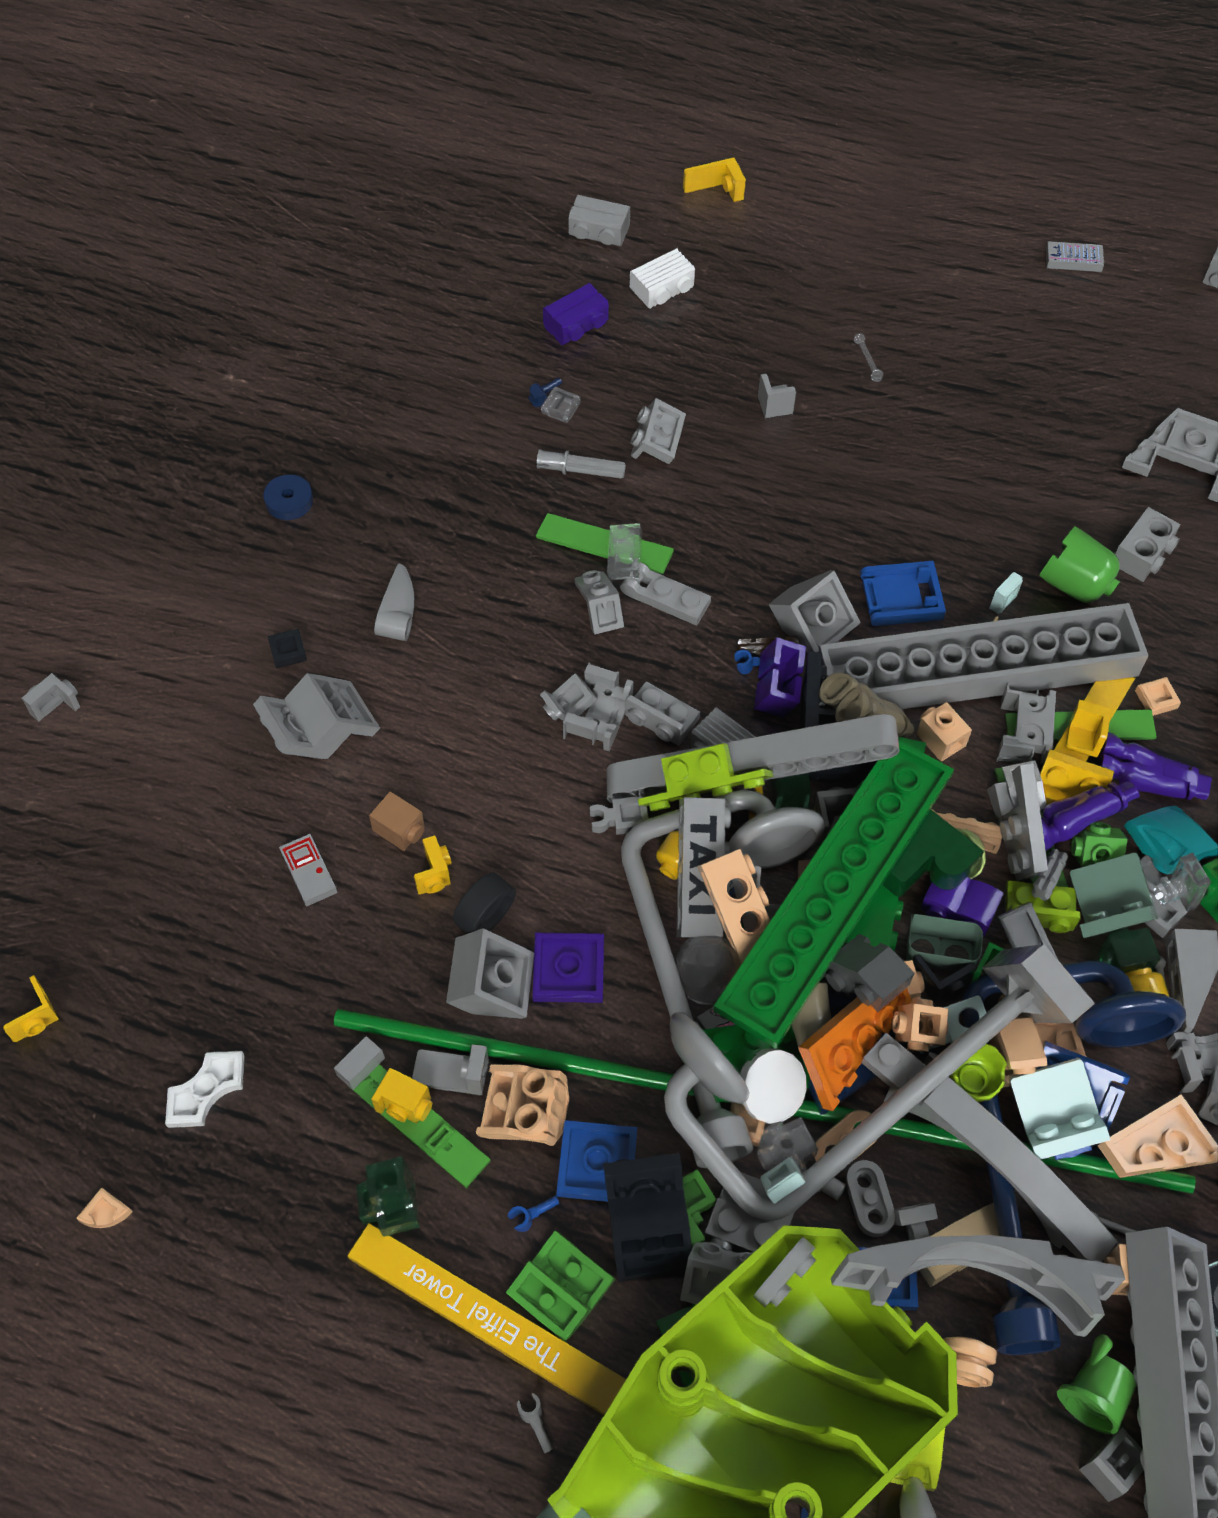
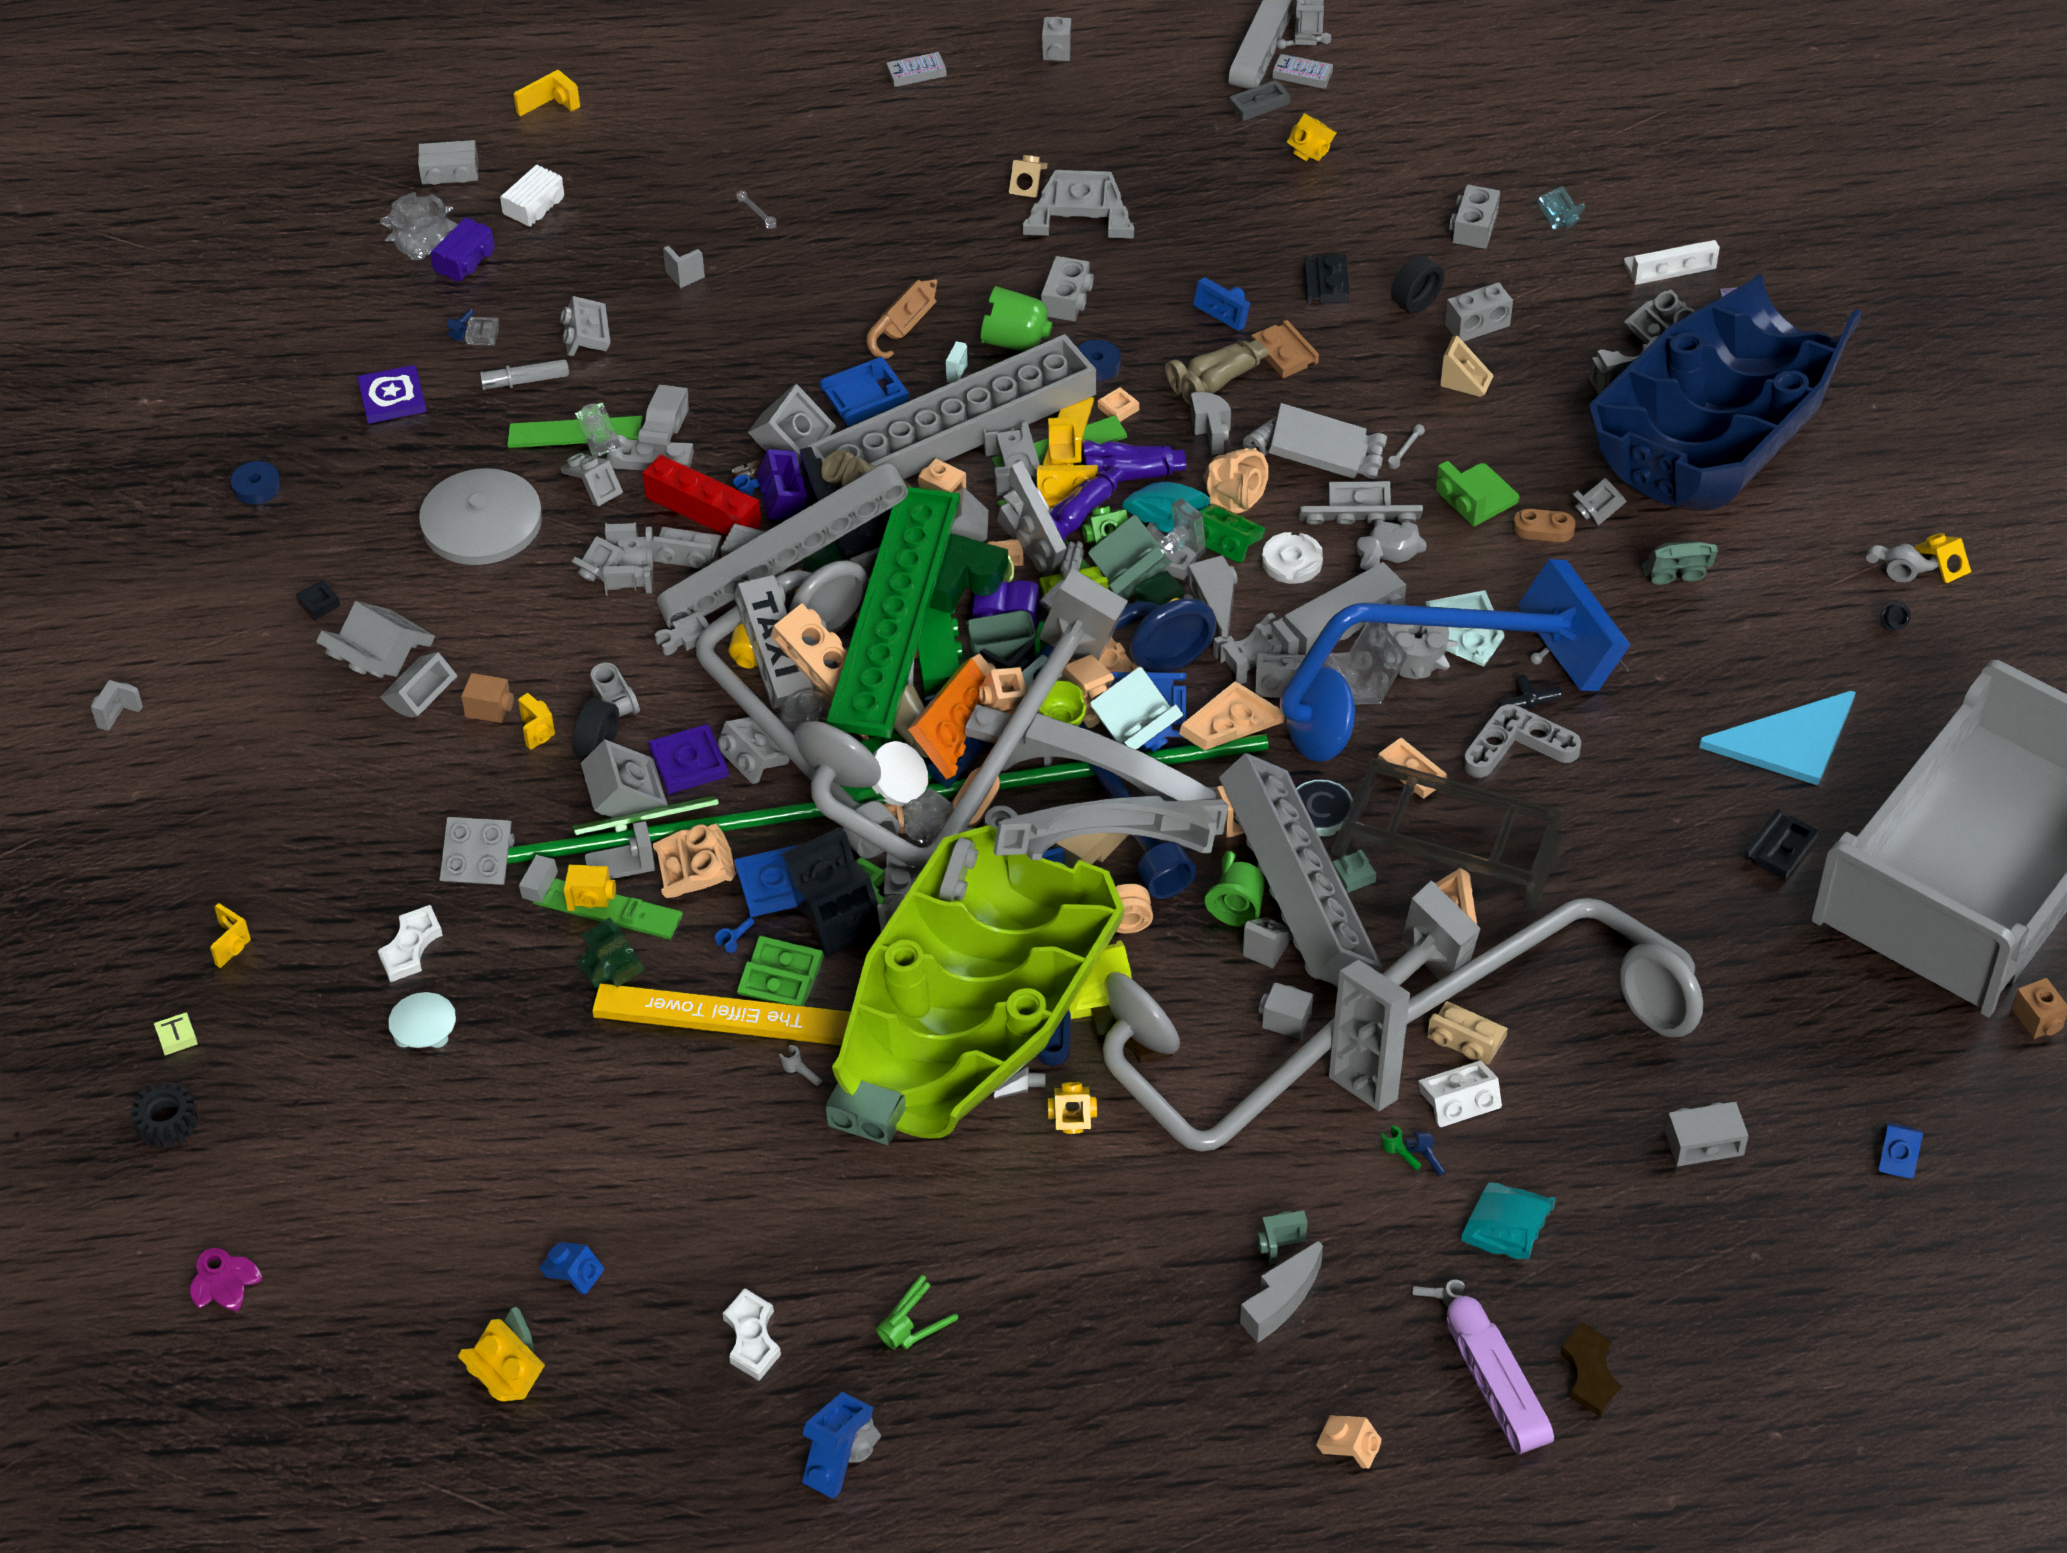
camera: 20 degrees left, 10 degrees down
(103, 1211) = (366, 1053): light nougat tile -> none
(175, 1194) = (422, 1020): none -> light aqua dish
(308, 870) = (422, 760): light grey tile -> none
(312, 1004) = (476, 850): none -> light grey hinge
(340, 781) = (419, 685): none -> light grey brick
(397, 607) = (406, 538): light grey piece -> none
(450, 444) = (391, 394): none -> dark purple tile
(478, 607) = (480, 516): none -> light grey dish
(494, 1024) = (619, 822): none -> bright green piece
(522, 866) = (611, 687): none -> light grey piece
(544, 275) = (417, 224): none -> clear brick
(634, 982) = (749, 748): none -> light grey bracket
(694, 557) = (664, 415): none -> light grey piece
(695, 662) = (699, 496): none -> red brick
(701, 773) = (745, 563): lime bracket -> none
(782, 1180) = (932, 829): light aqua tile -> none
(870, 972) = (944, 661): dark grey brick -> none
(961, 789) = (971, 517): none -> light grey brick
(970, 520) = (902, 314): none -> medium nougat plate
(1151, 394) = (1028, 165): none -> tan bracket
(1164, 631) = (1103, 357): none -> dark blue piece

